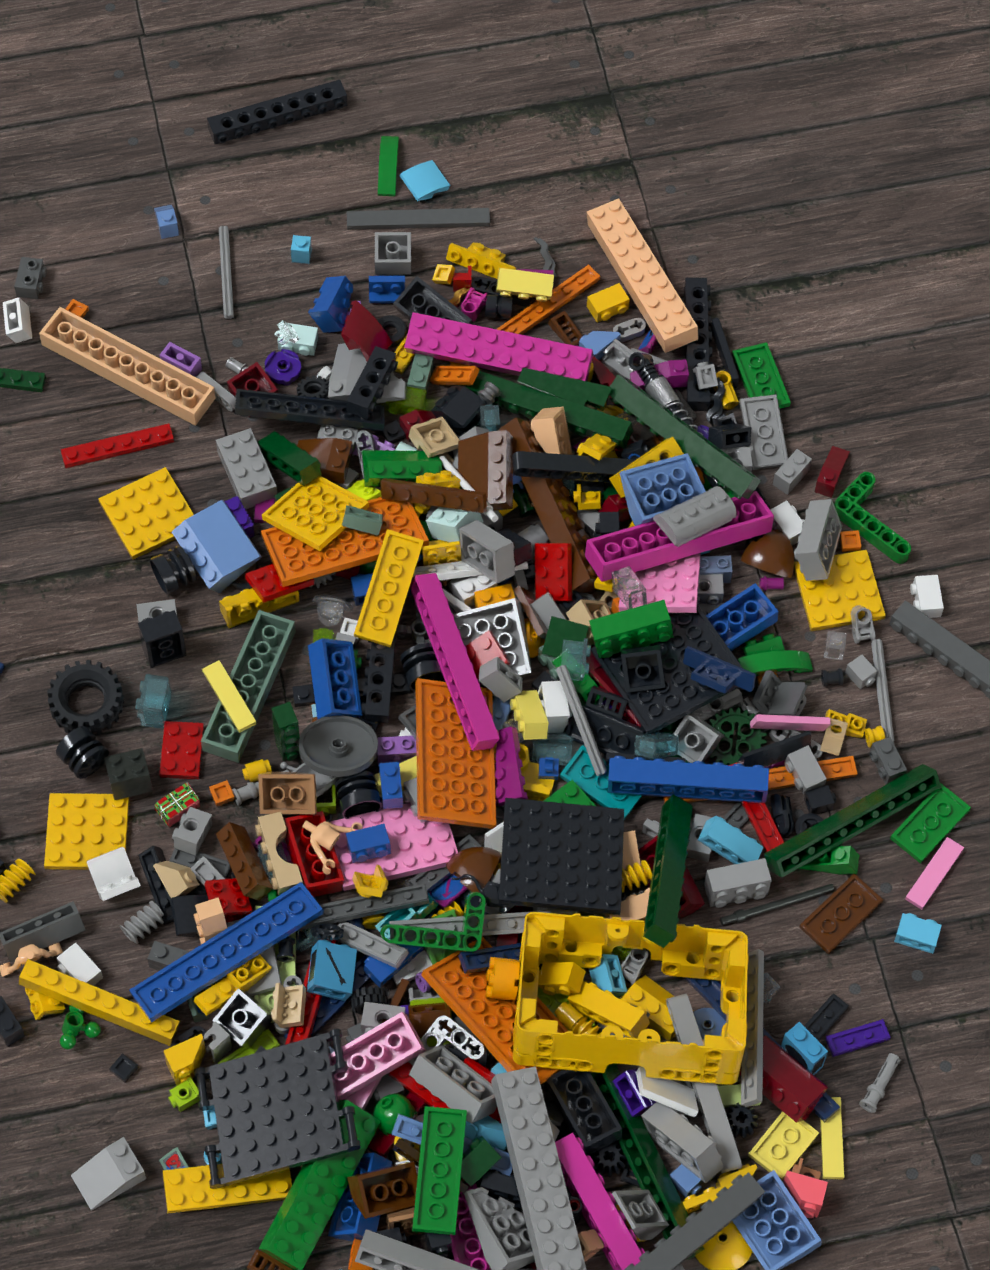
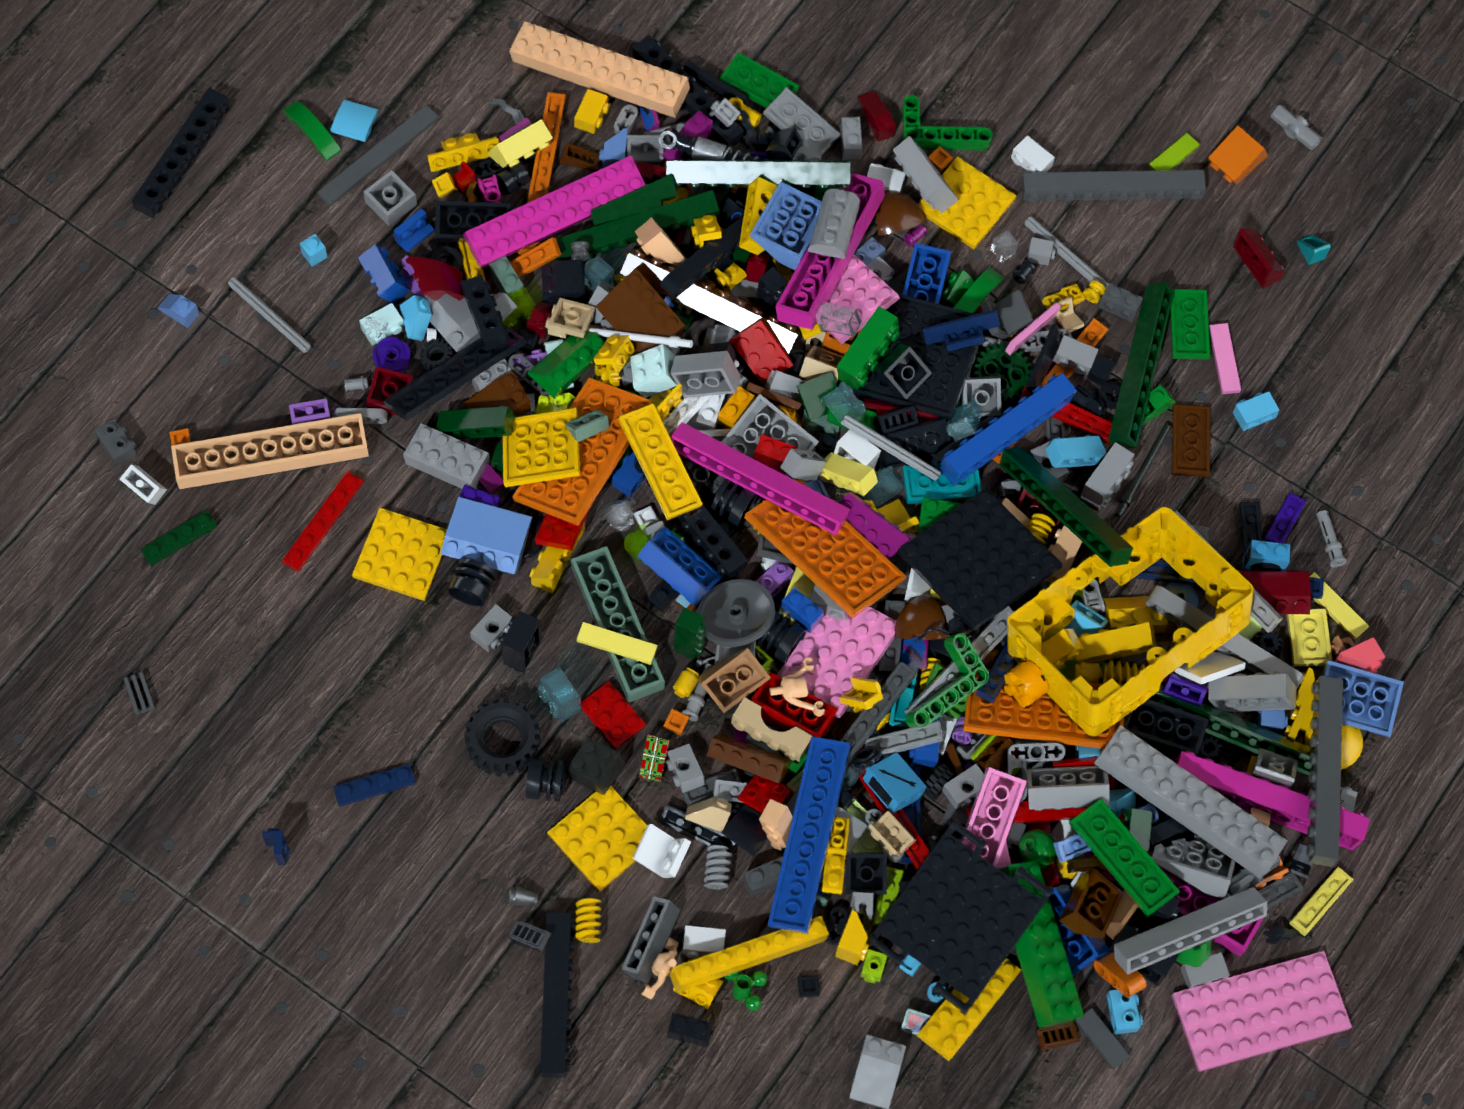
camera: 45 degrees left, 5 degrees up
(326, 351) = (416, 316): none -> medium azure slope
(368, 843) = (828, 667): blue brick -> none
(433, 495) = (624, 363): reddish brown plate -> none
(548, 768) = (894, 504): blue tile -> none
(862, 628) = (1008, 215): light grey piece -> none

